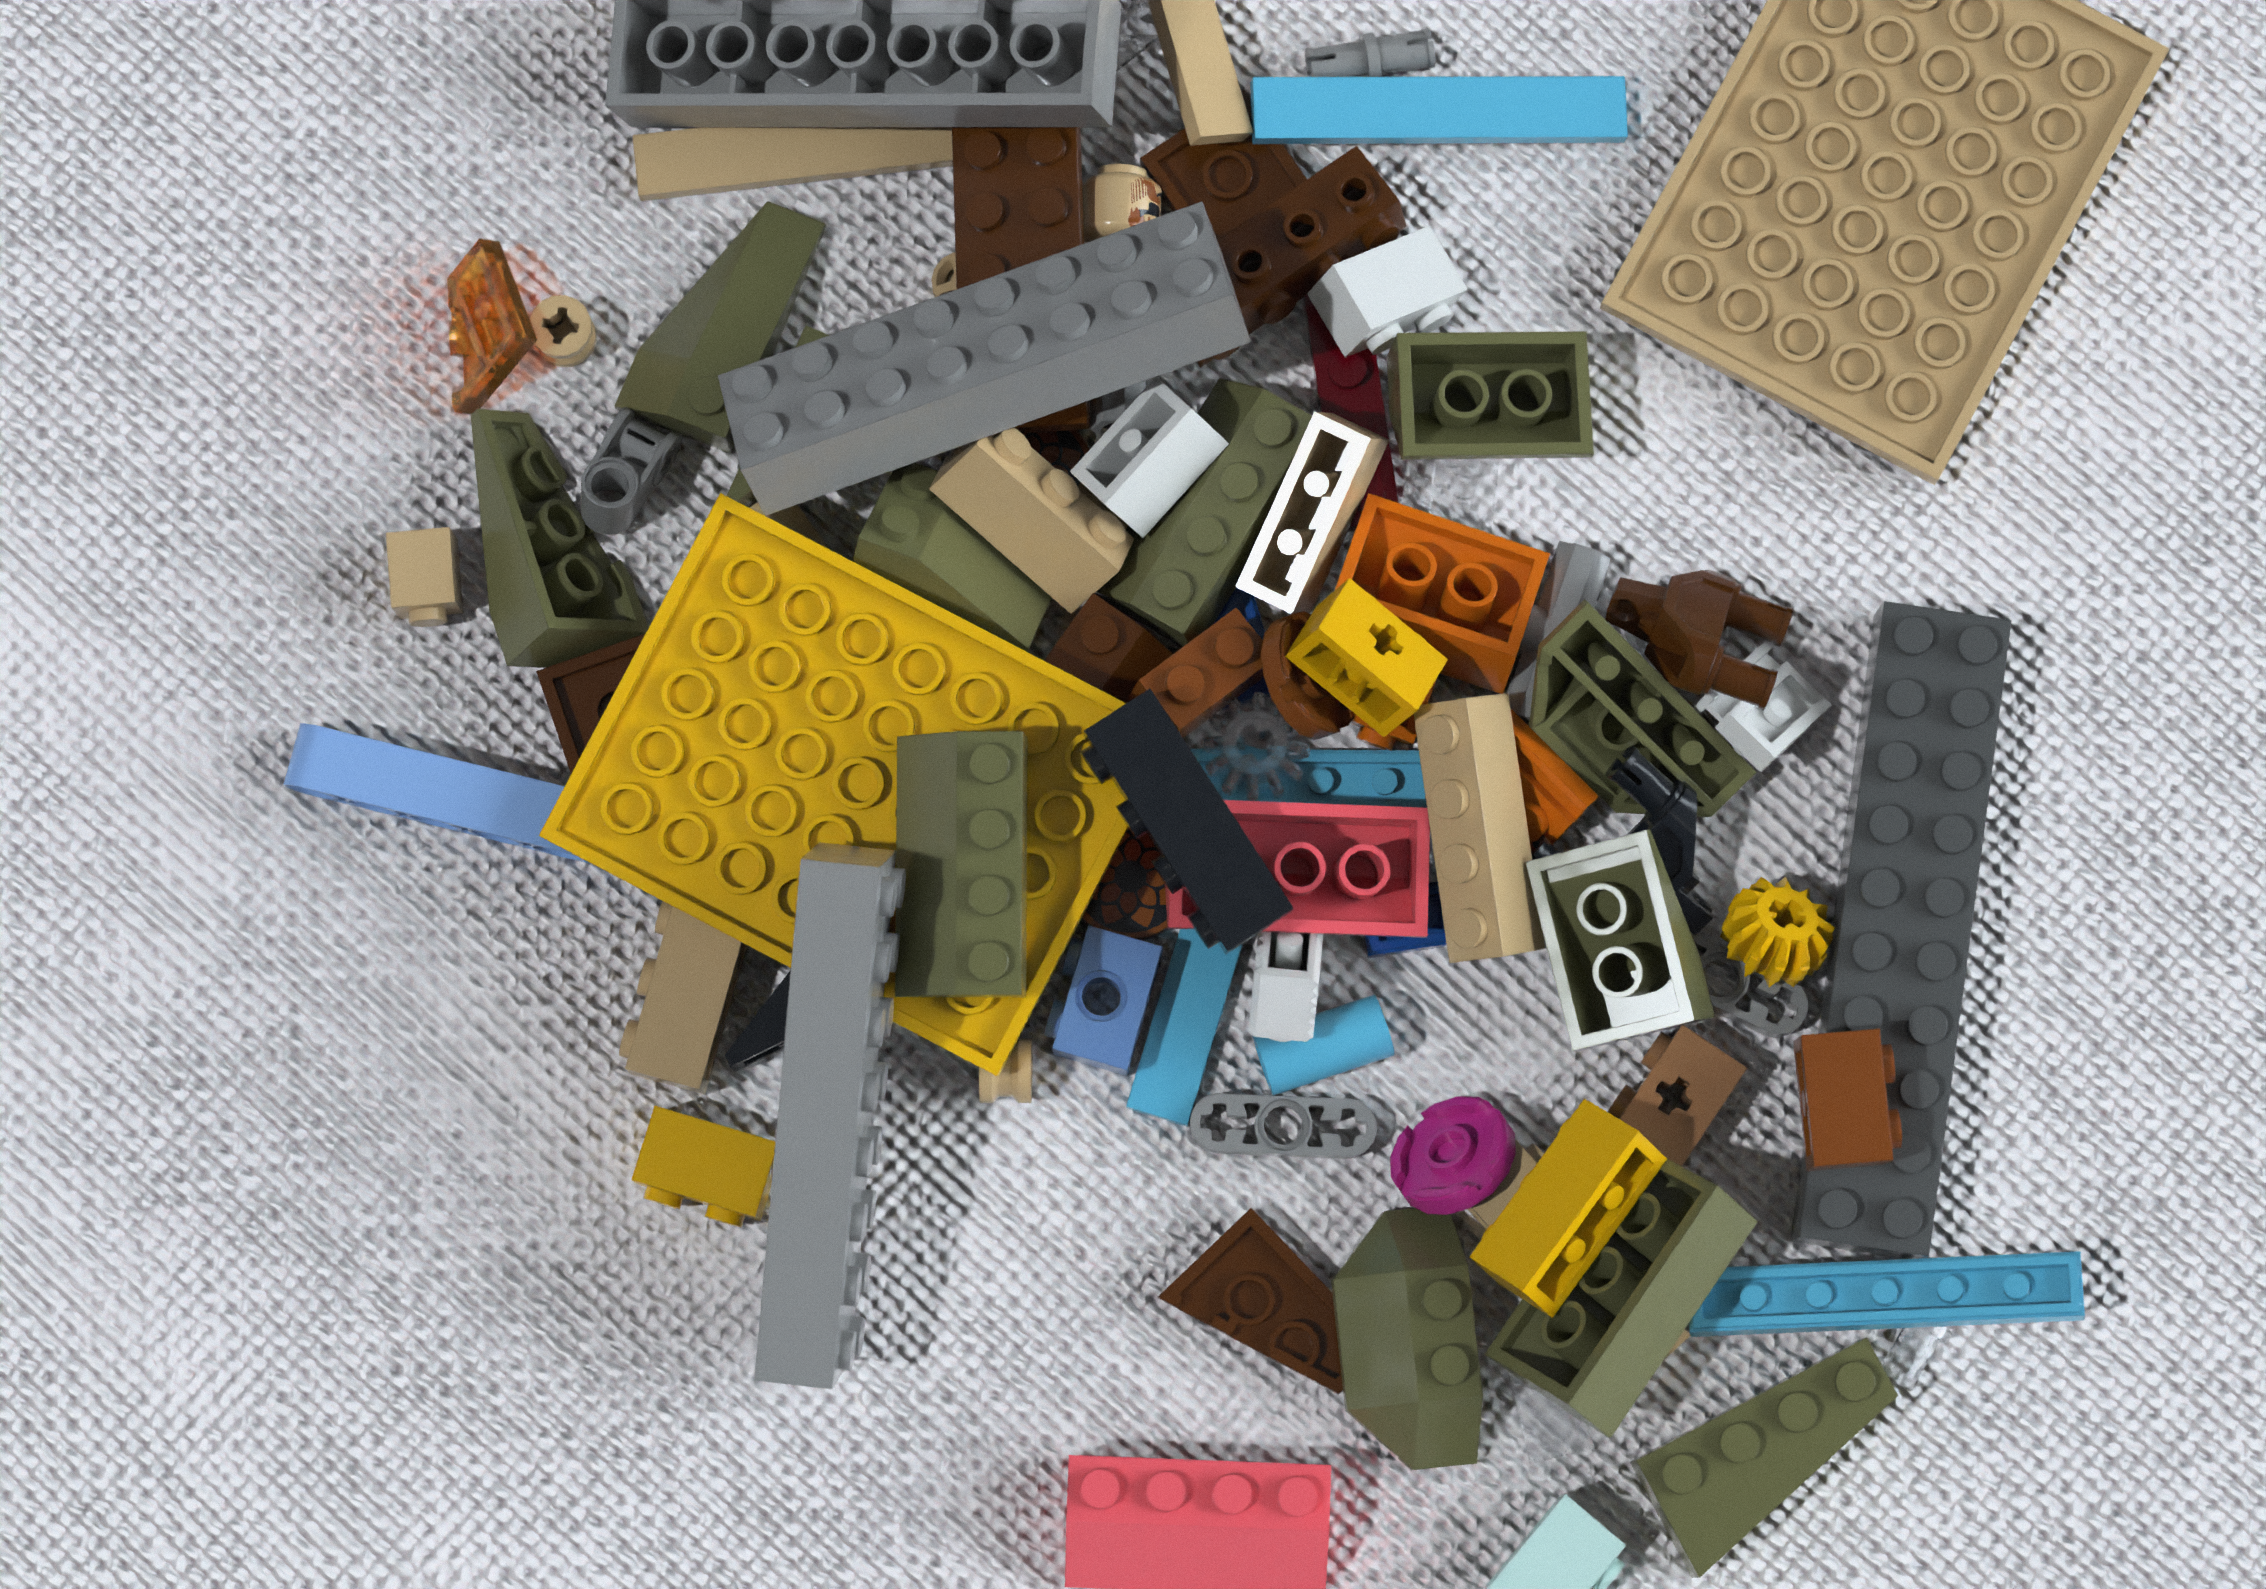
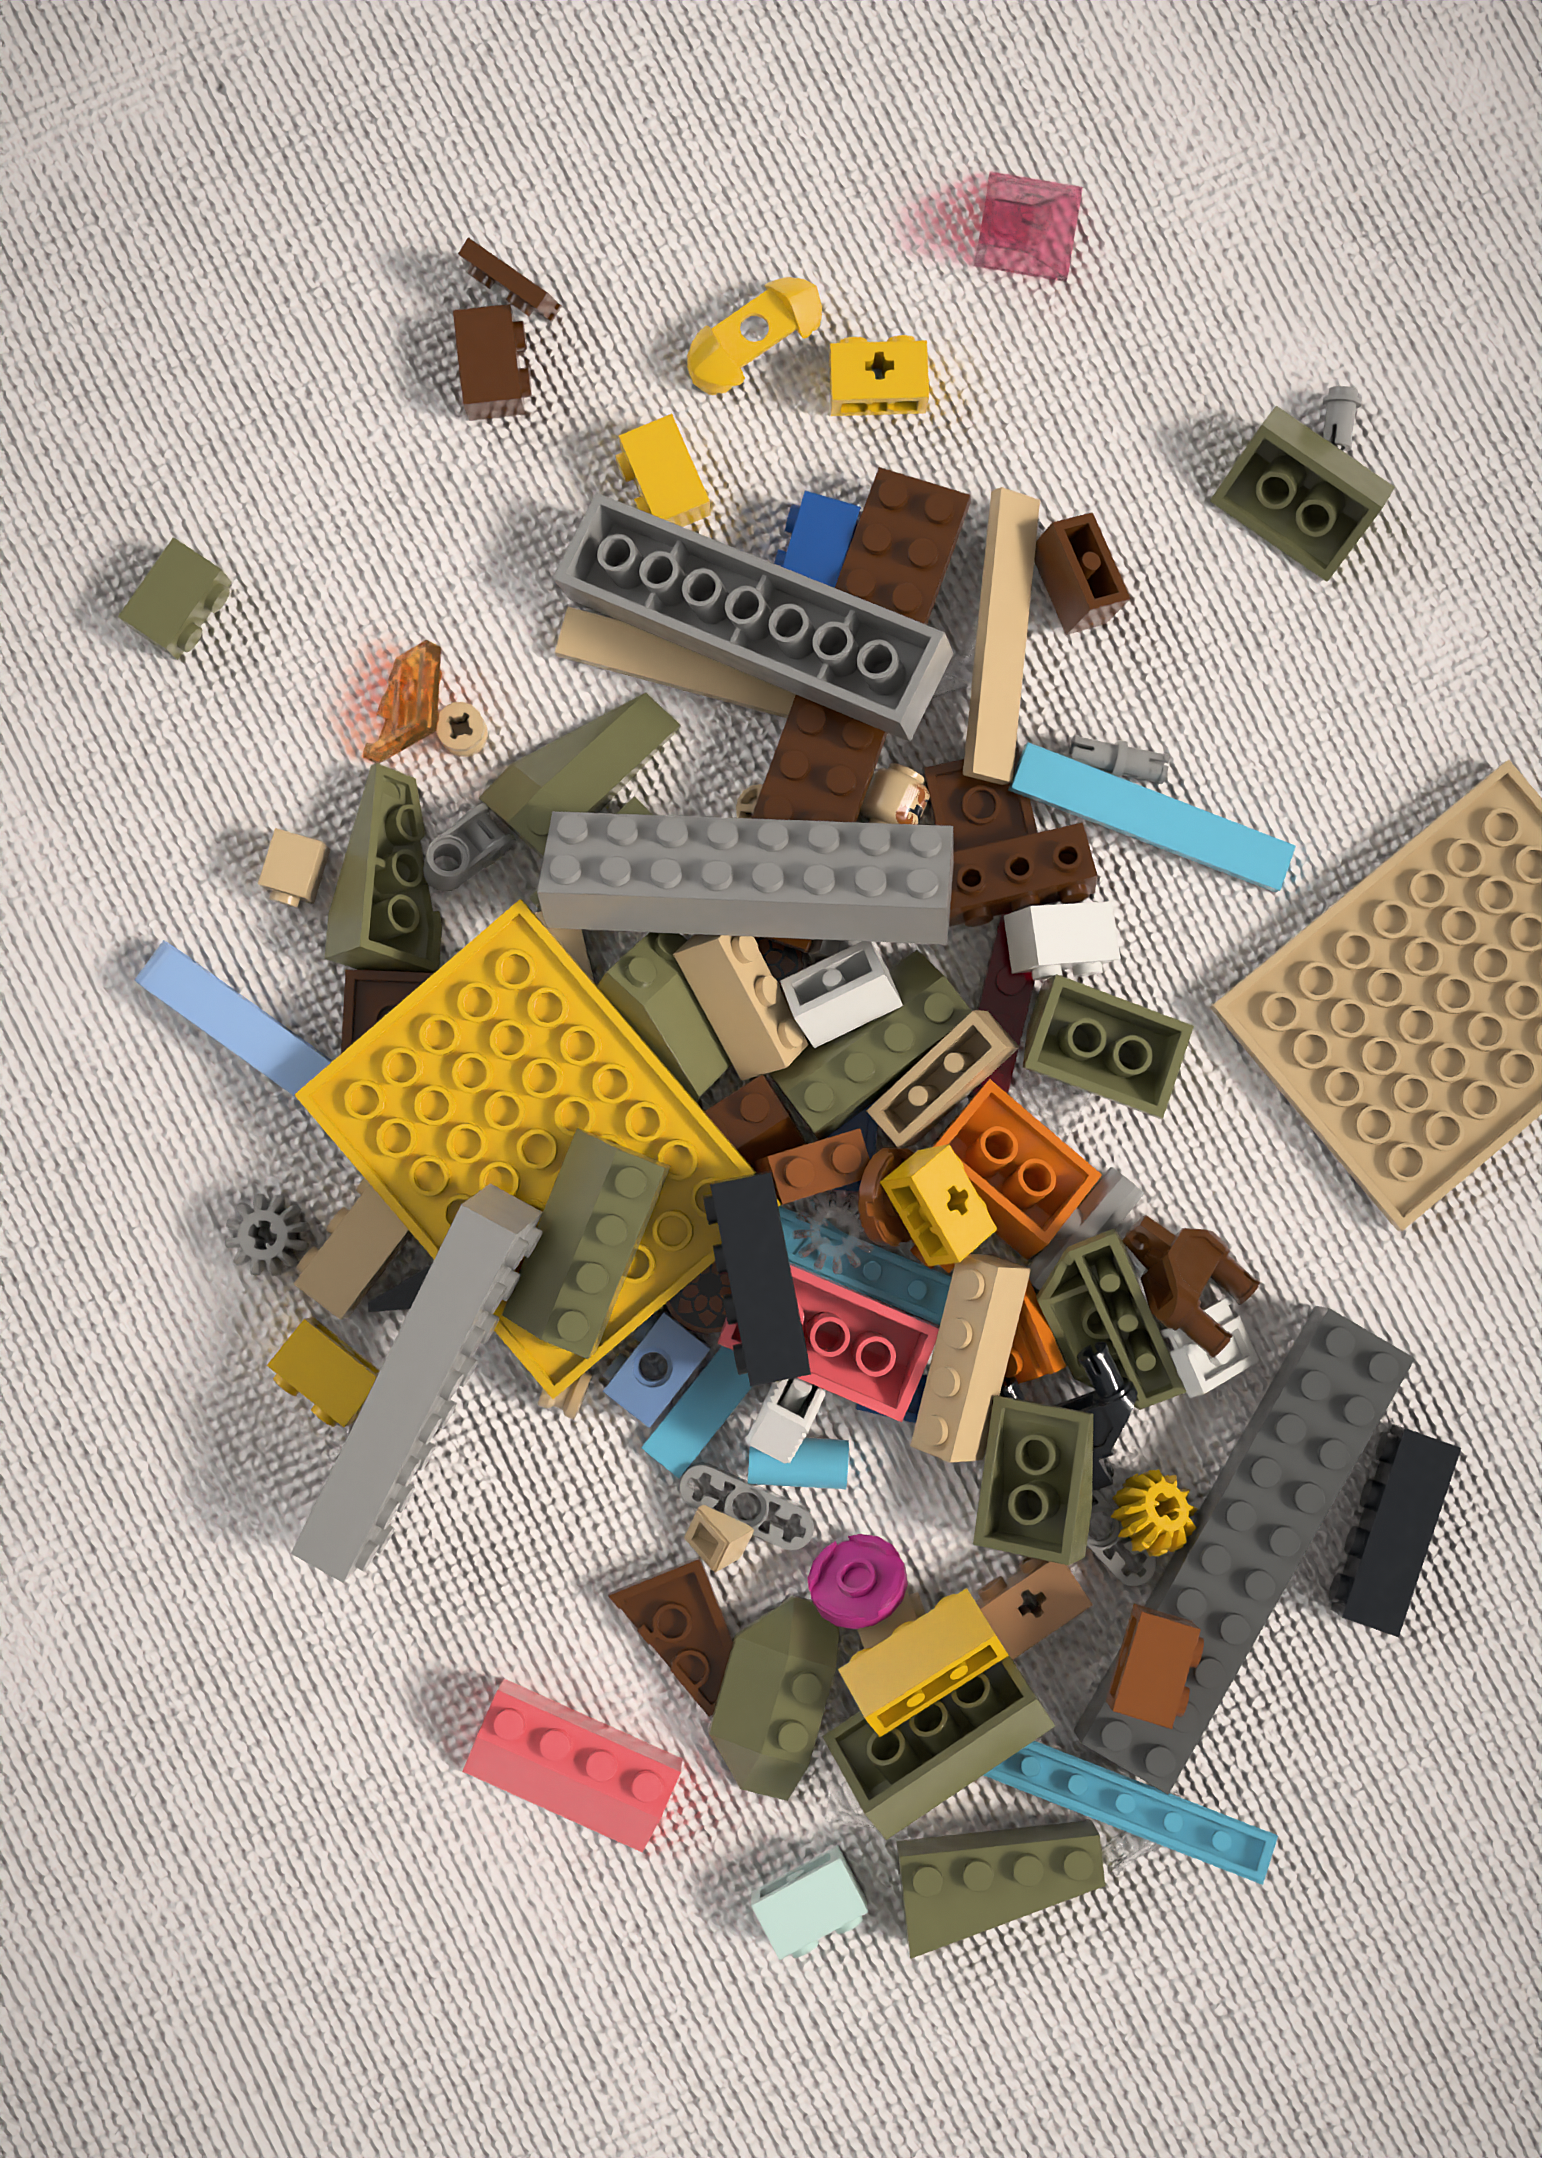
camera: 15 degrees right, 5 degrees up
(154, 311) = (176, 599): none -> olive brick
(554, 1046) = (253, 1245): none -> light grey gear
(1263, 1174) = (717, 1537): none -> tan slope
(2074, 838) = (1393, 1529): none -> black brick

